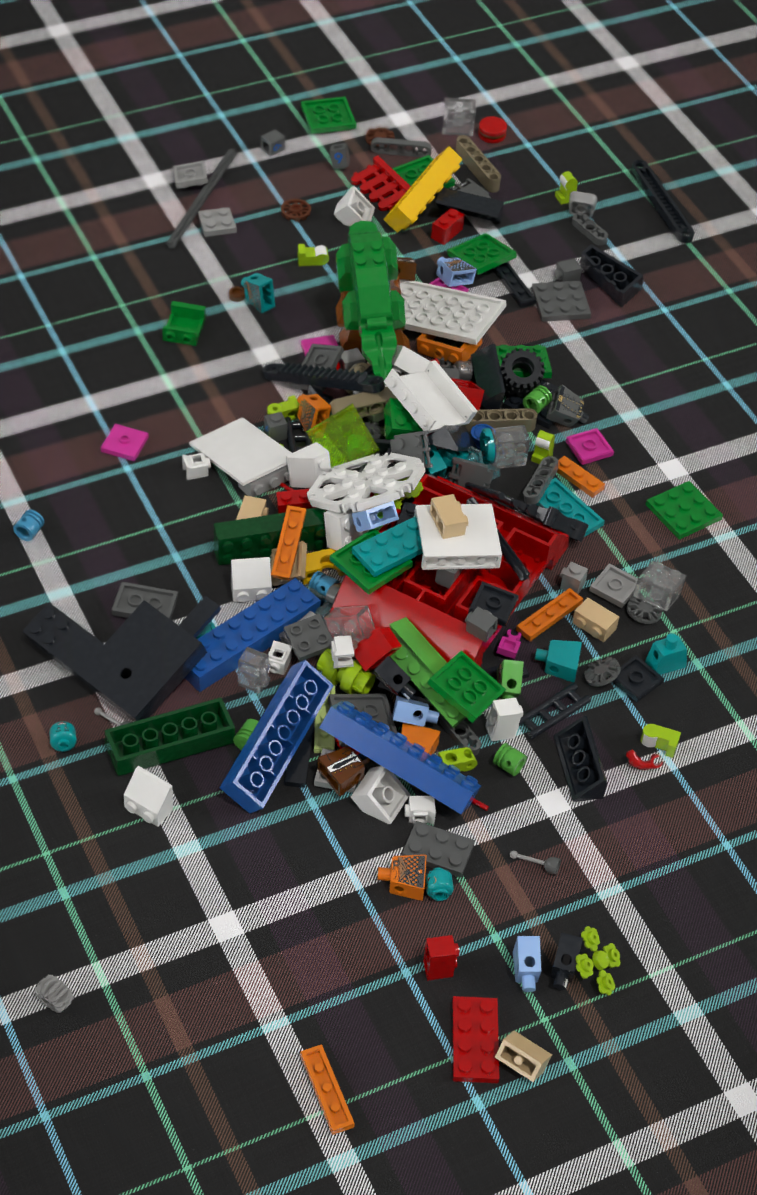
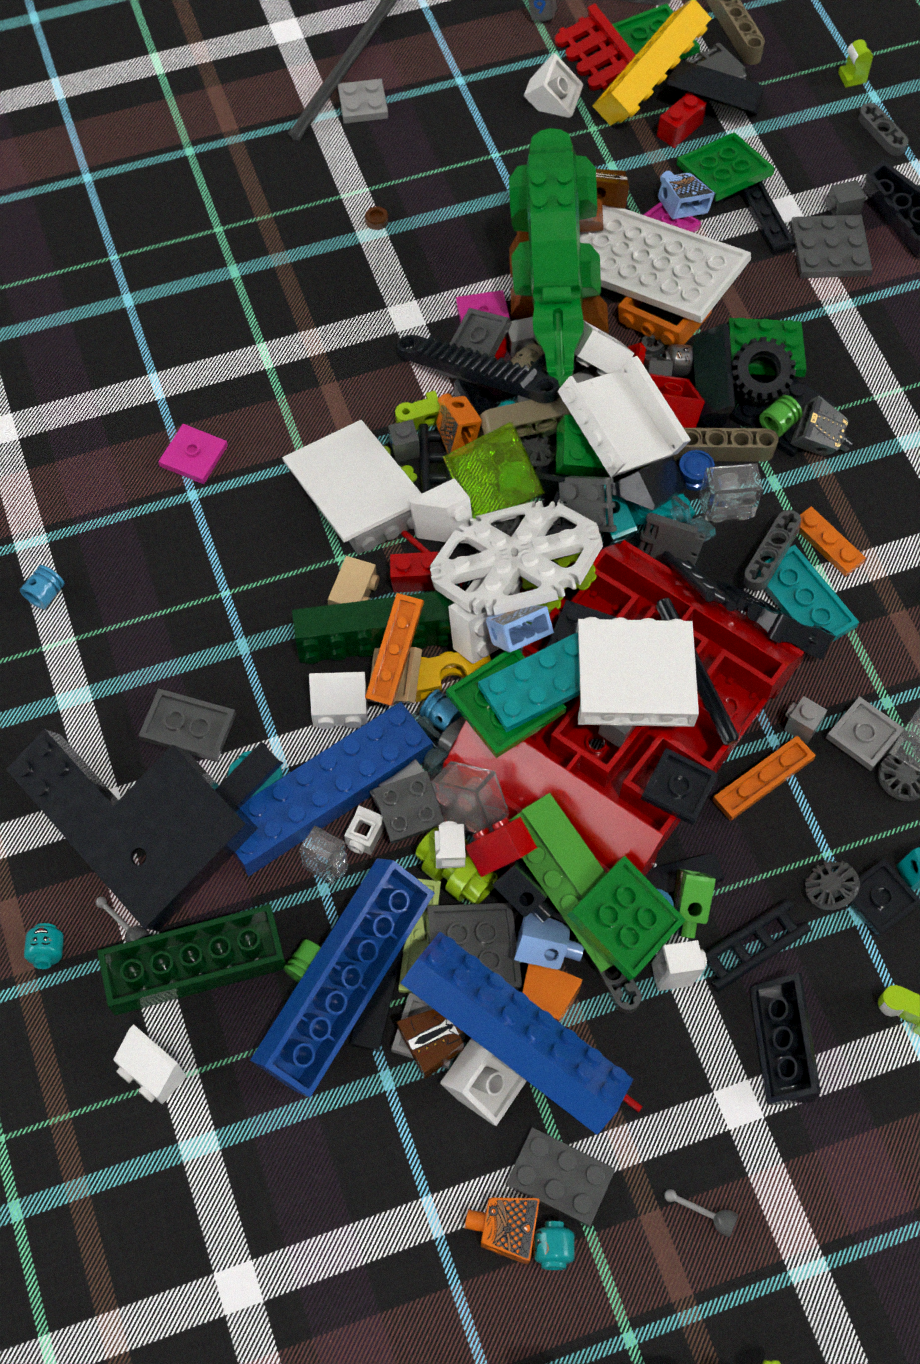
camera: 10 degrees right, 15 degrees up
(184, 323) = (298, 264): green panel -> none
(190, 174) = (333, 25): light grey plate -> none
(195, 465) = (286, 499): white window -> none
(259, 291) = (406, 218): teal torso -> none
(296, 211) = (473, 85): copper wheel -> none
(312, 255) = (488, 160): lime leg -> none
(421, 809) = (539, 1111): white window -> none
(448, 516) = (624, 646): tan brick -> none
(461, 758) = (602, 1026): lime leg -> none
(481, 624) = (657, 823): dark grey brick -> none
(487, 445) = (701, 489): teal tile -> none
(509, 645) = (701, 832): dark pink plate -> none
(510, 759) = (681, 1031): bright green piece -> none
(543, 446) = (781, 495): lime leg -> none
(561, 658) = (773, 857): teal torso -> none
(582, 203) = (876, 89): light grey piece -> none
(589, 446) = (849, 492): dark pink plate -> none
(595, 619) = (830, 792): tan brick -> none
(636, 761) = (880, 1050): red piece -> none

